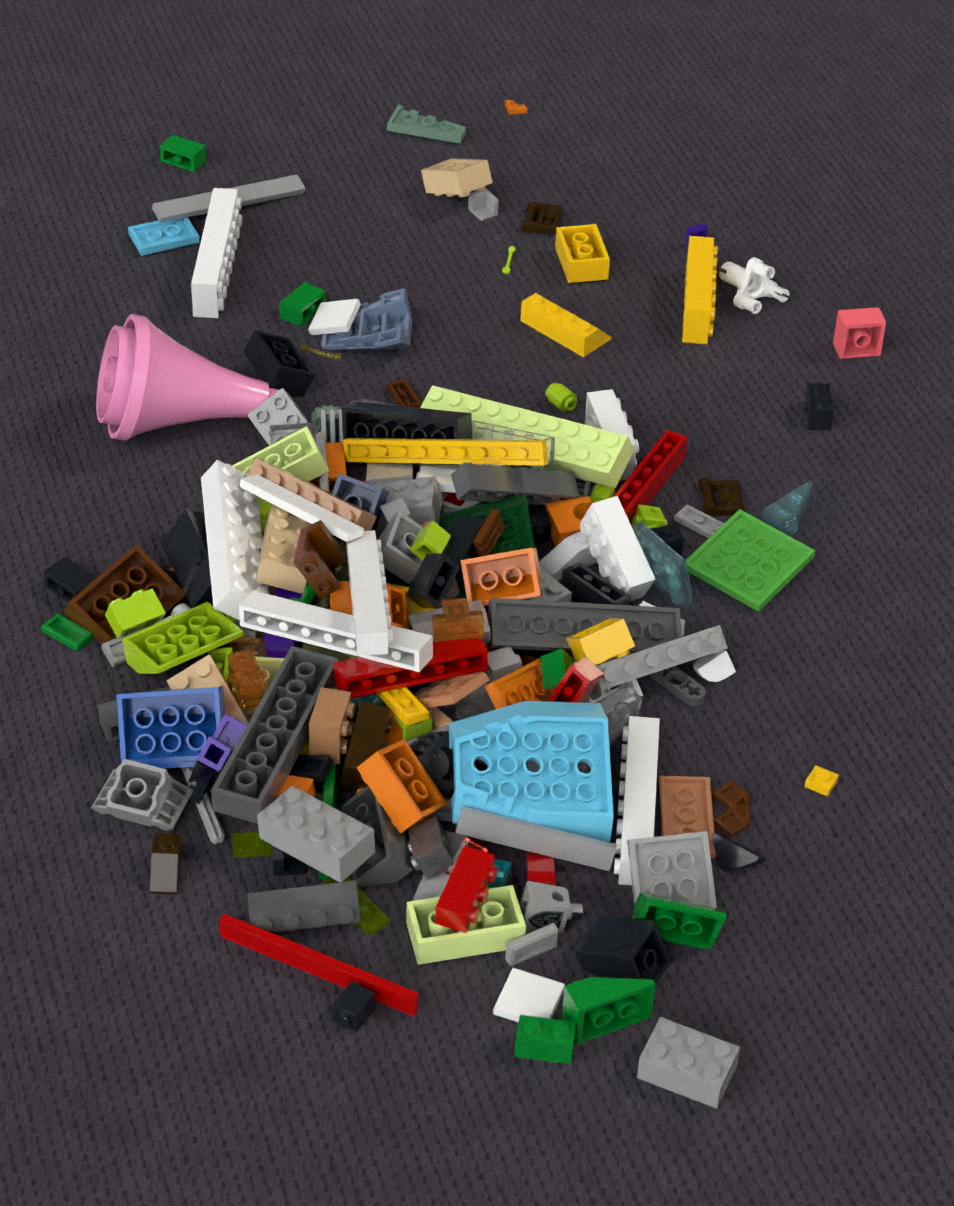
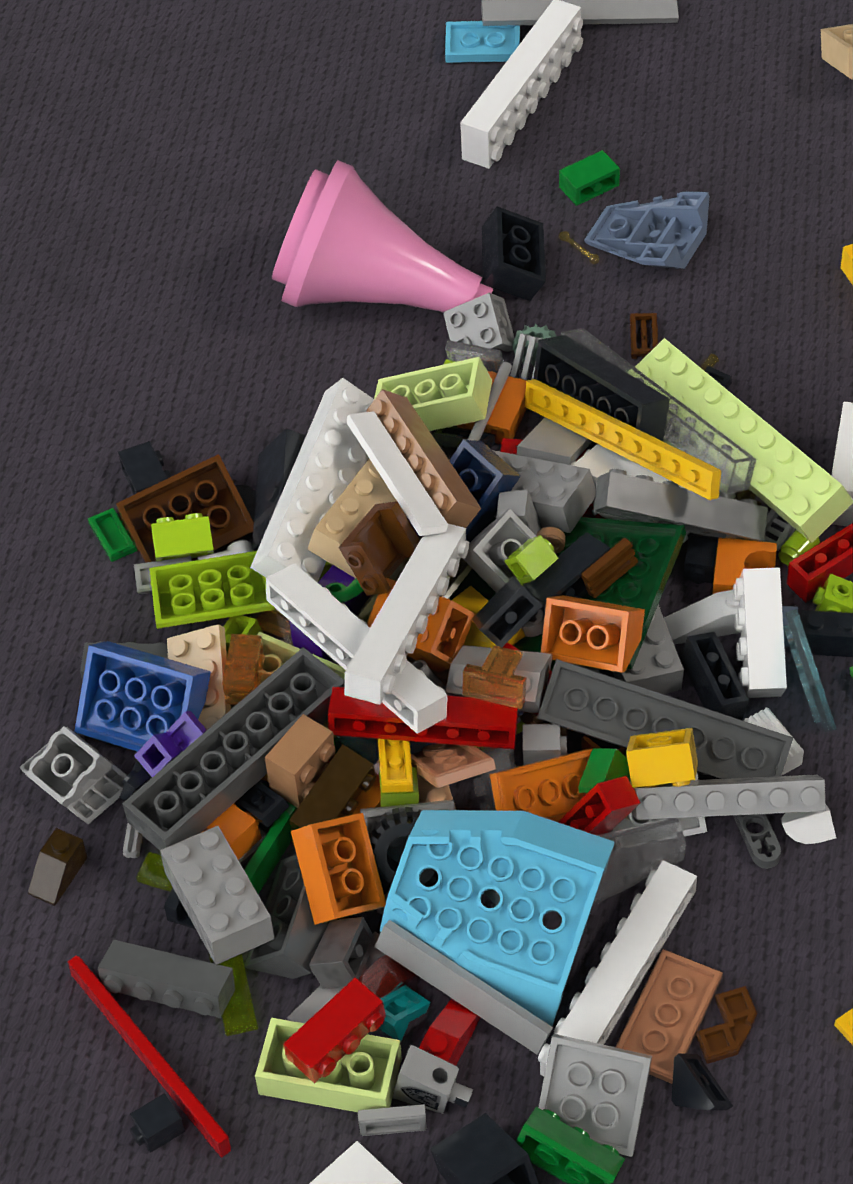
camera: 30 degrees right, 10 degrees up
(334, 317) = (616, 205): white tile -> none
(561, 397) = (827, 391): lime brick -> none

